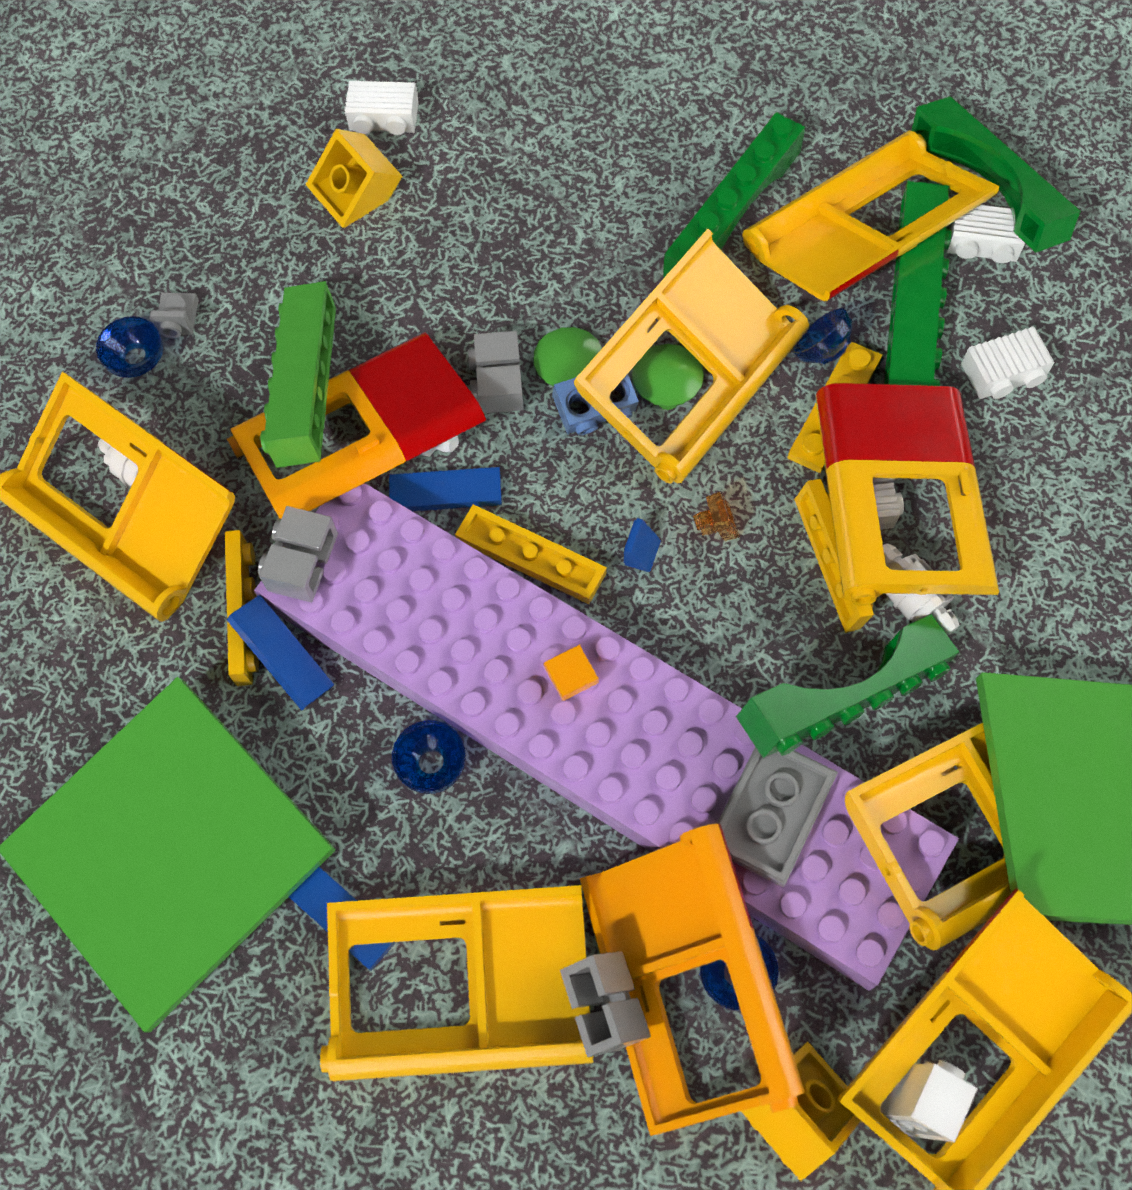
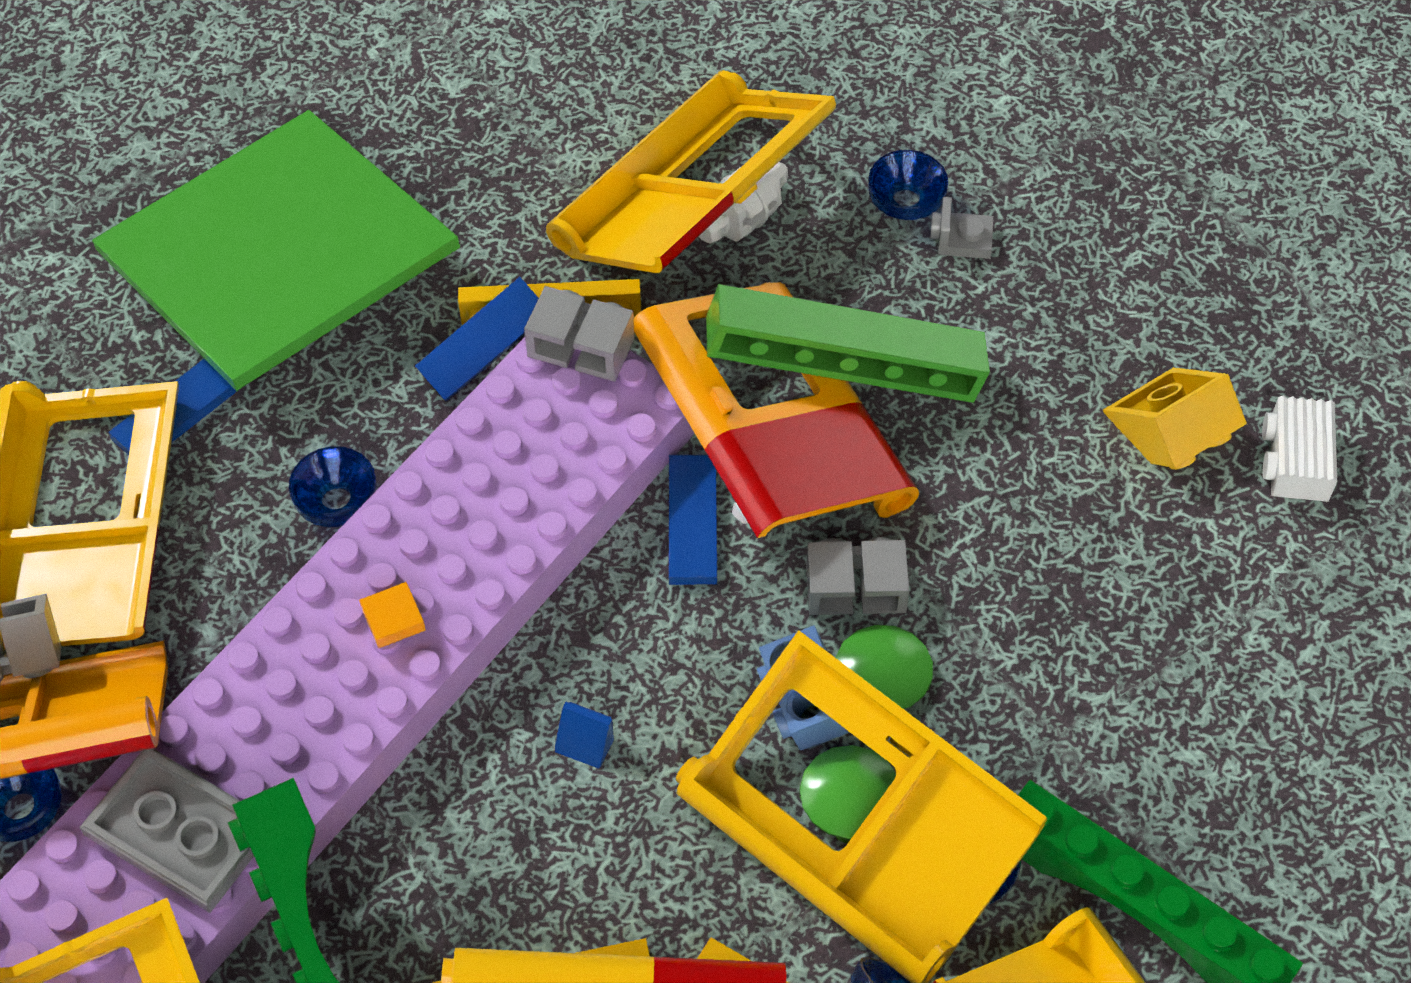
camera: 90 degrees right, 10 degrees down
(531, 554) = (587, 608): yellow plate -> none
(717, 519) = (614, 834): clear orange tile -> none

